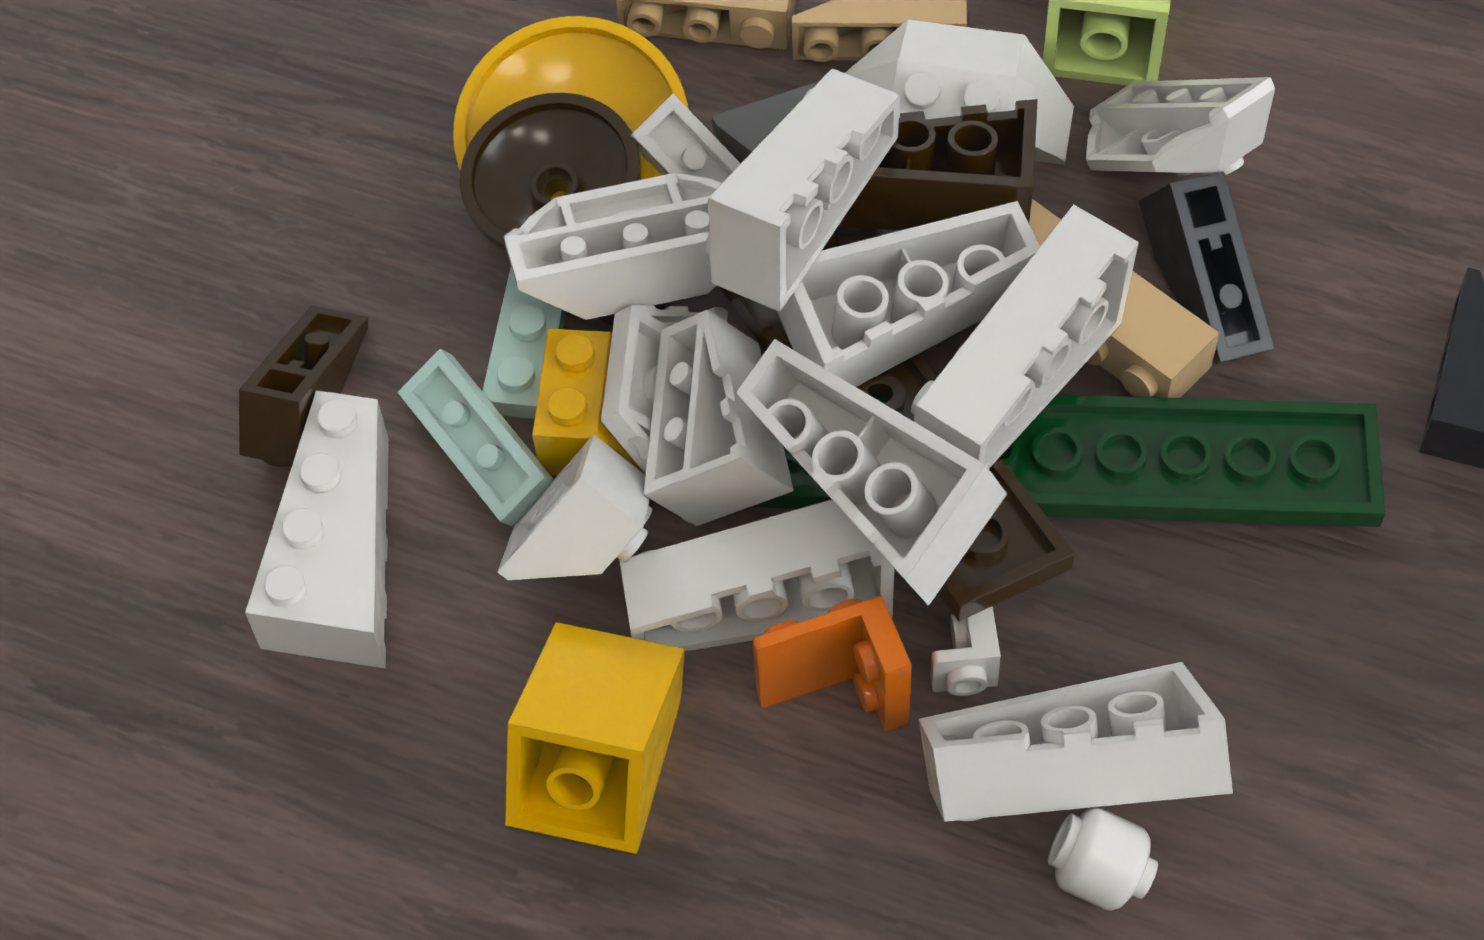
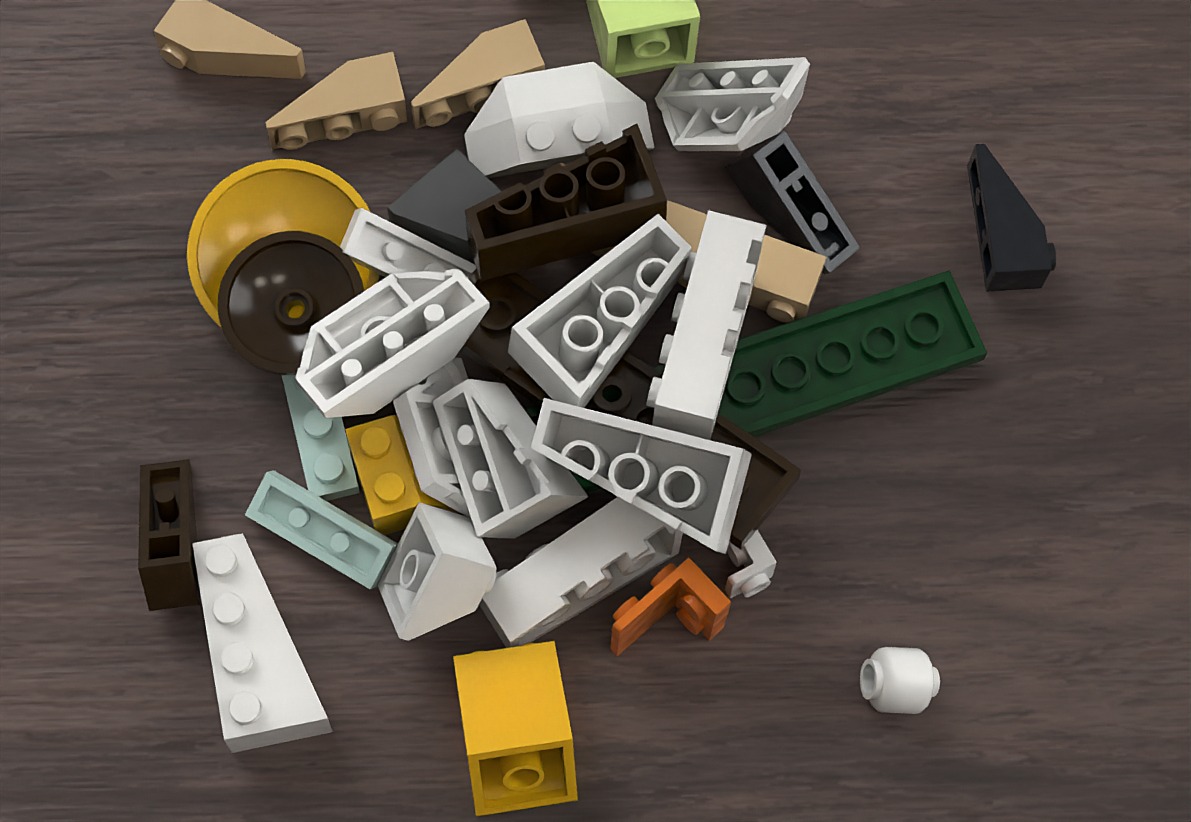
camera: 30 degrees left, 10 degrees up
(798, 187) = (508, 265): white wedge -> none
(1079, 747) = (857, 609): white wedge -> none

